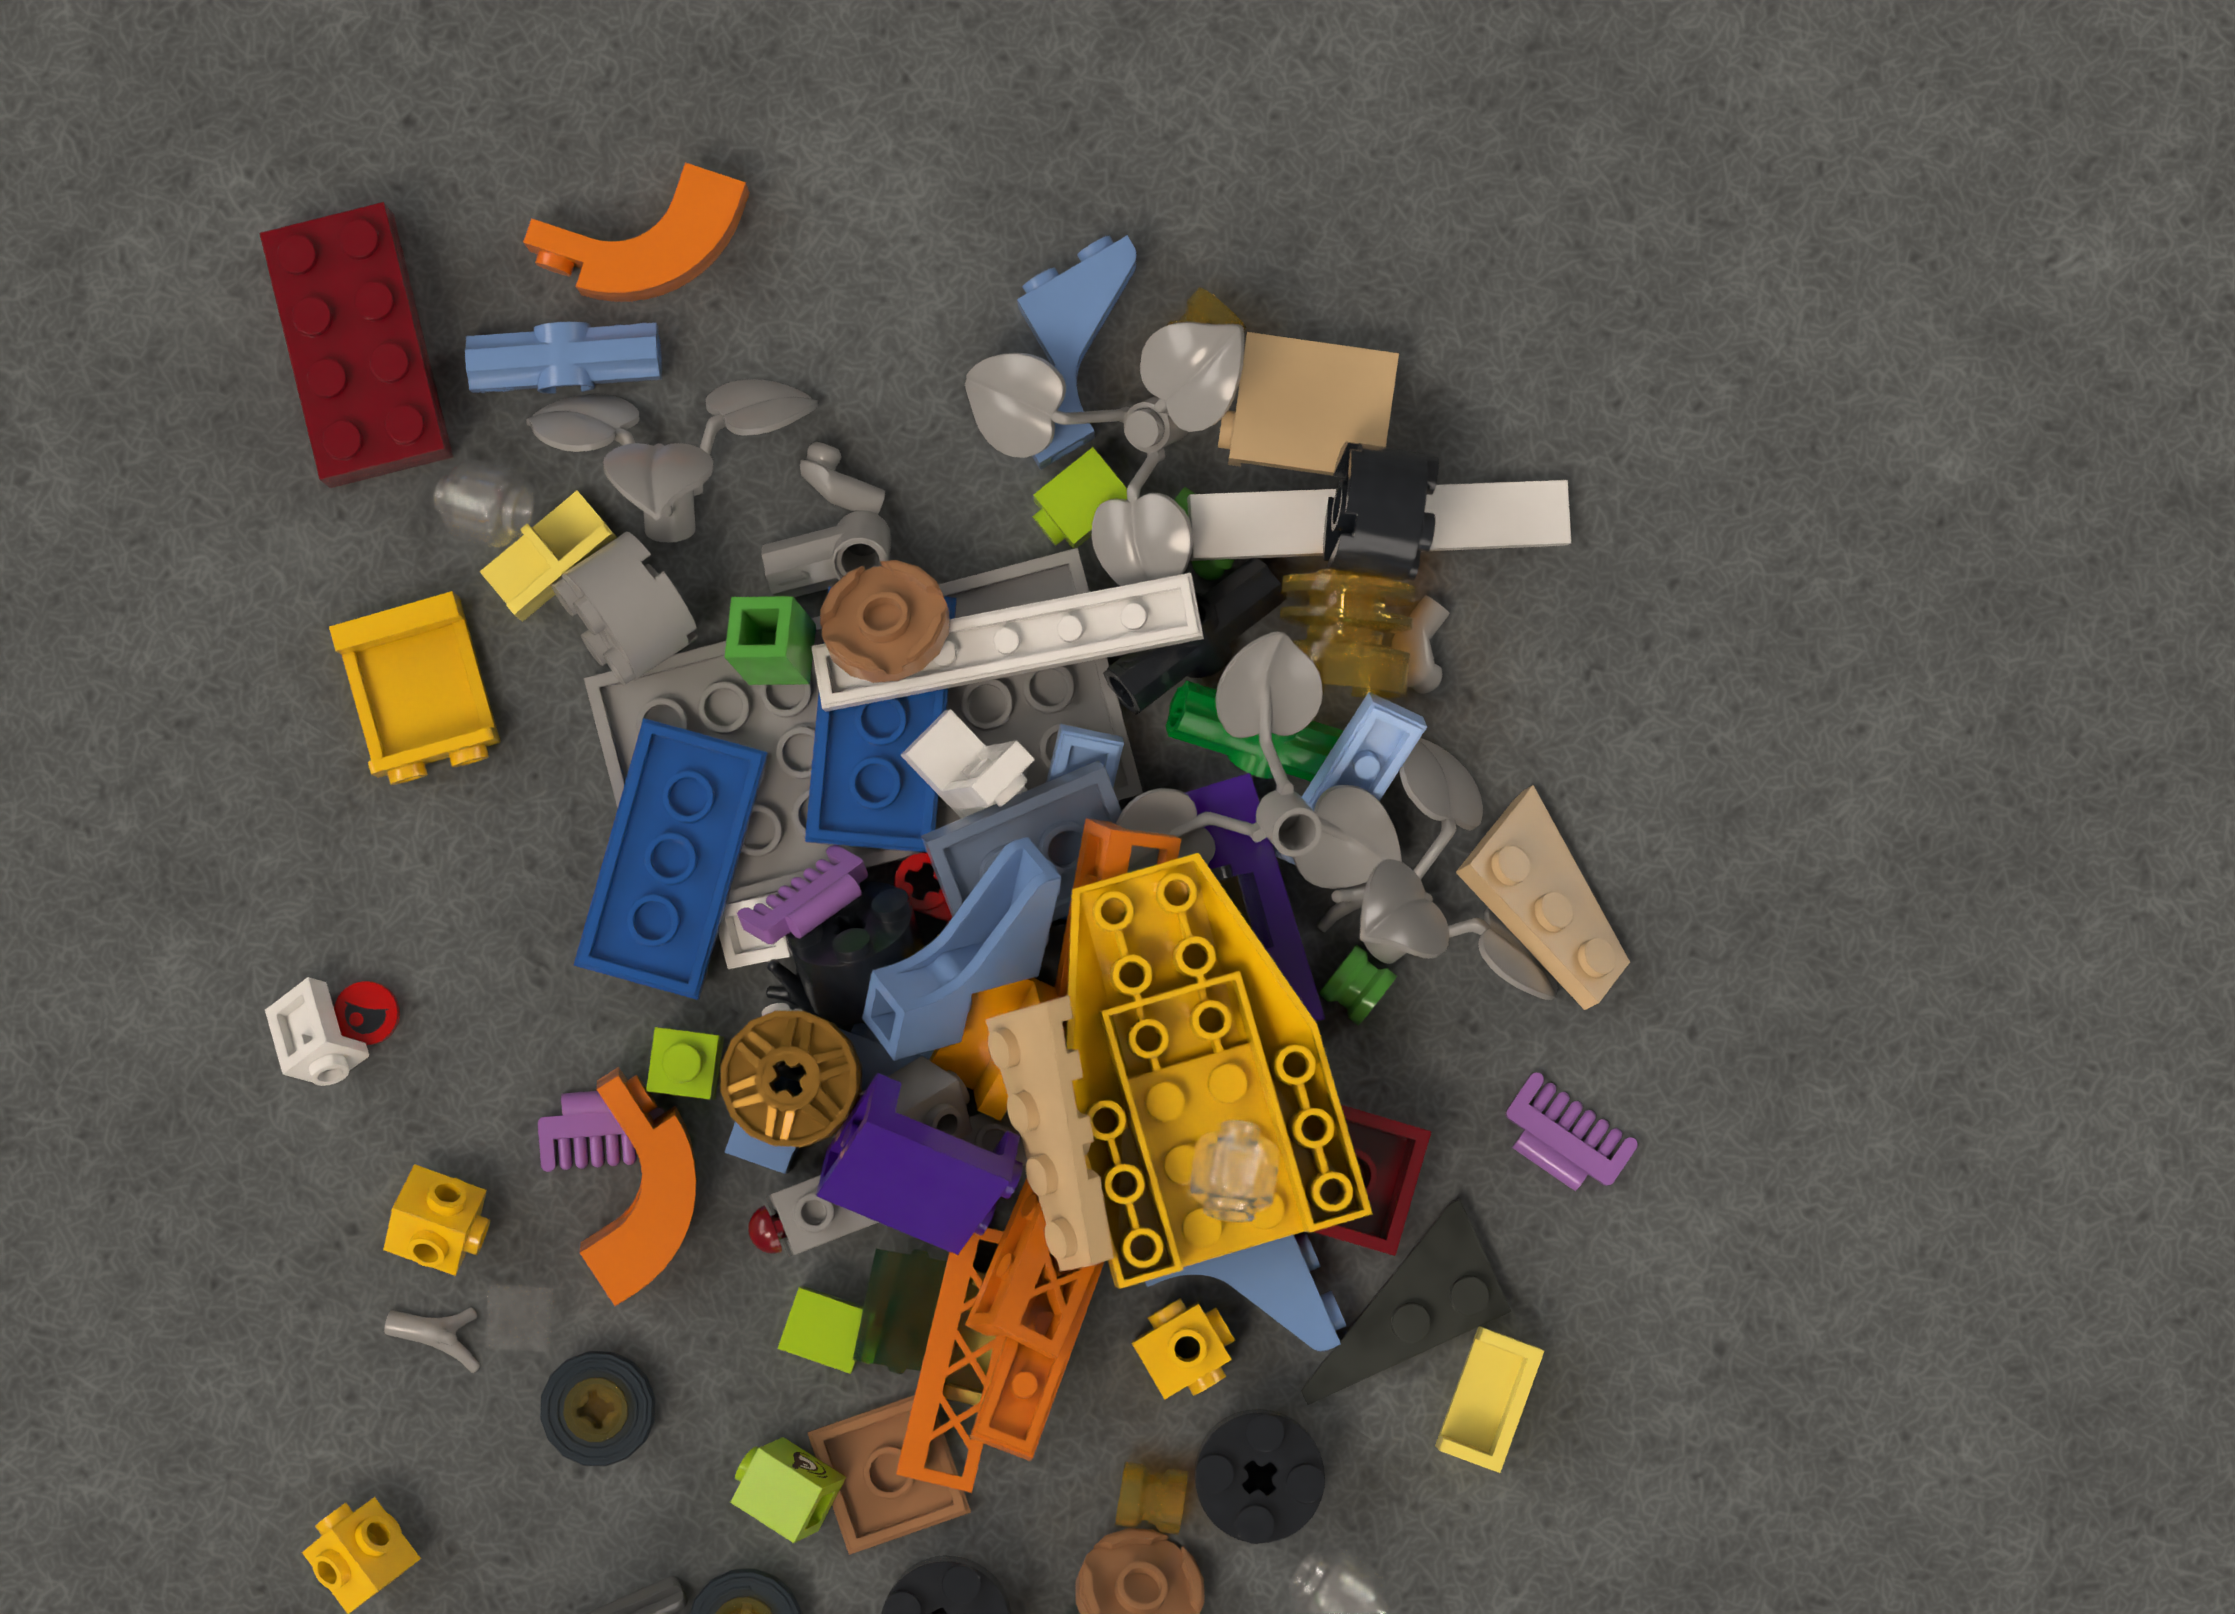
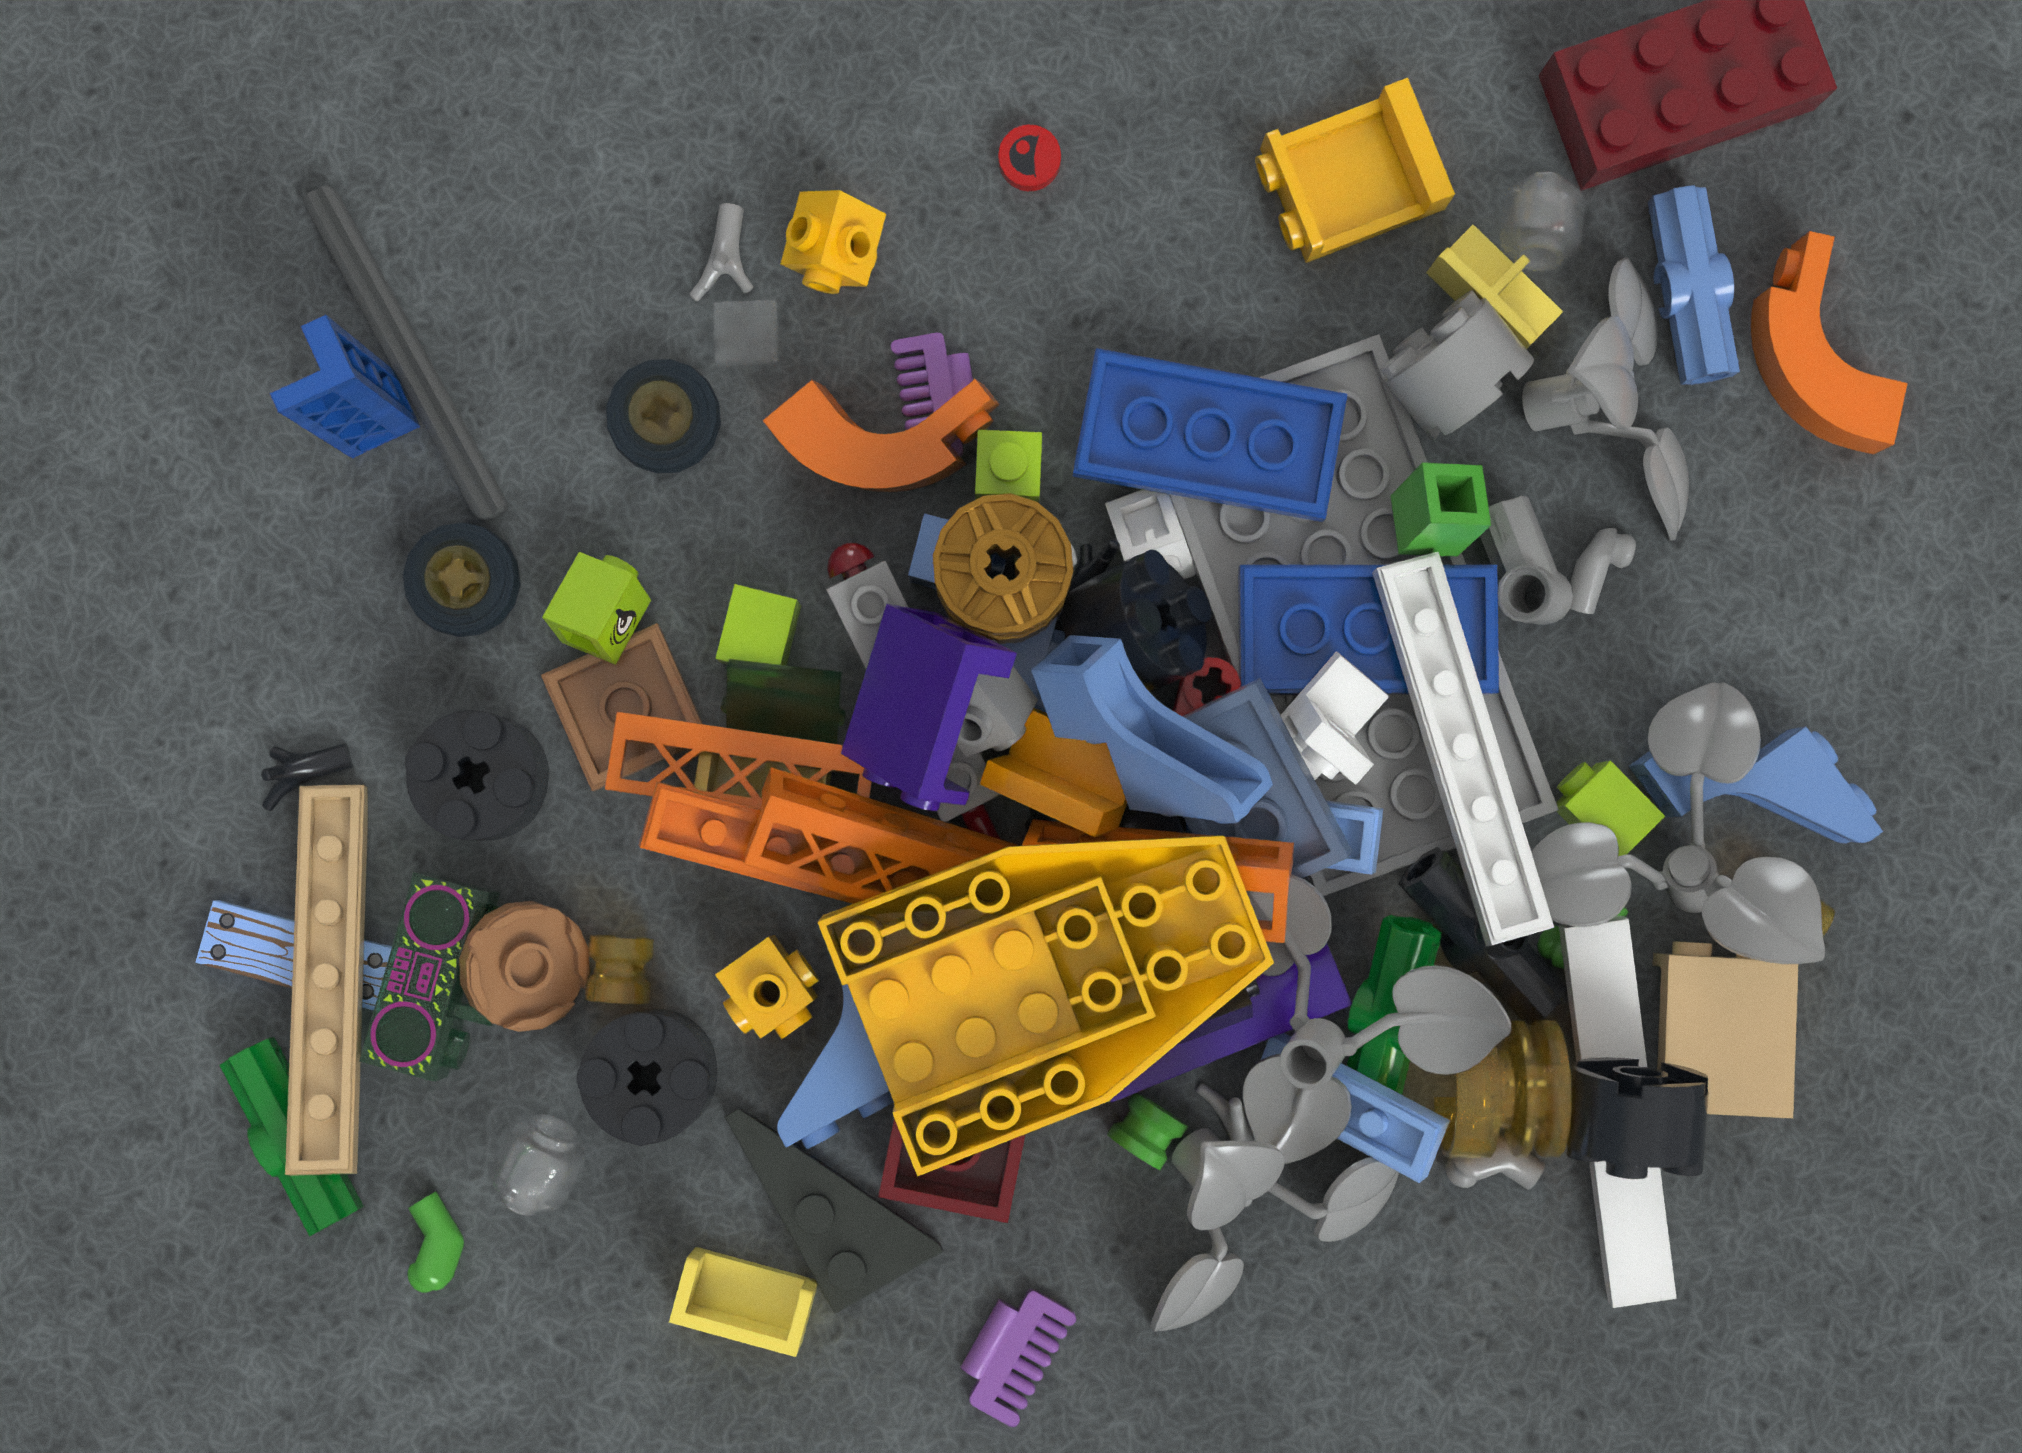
camera: 80 degrees right, 0 degrees up
(310, 1037) = (999, 101): white bracket -> none
(359, 1553) = (502, 196): yellow brick -> none
(812, 902) = (1180, 574): medium lavender piece -> none
(884, 621) = (1471, 622): medium nougat tile -> none
(1054, 1133) = (969, 841): tan wing -> none
(1234, 1172) = (947, 1030): clear head -> none
(1544, 899) = (1250, 1313): tan wing -> none

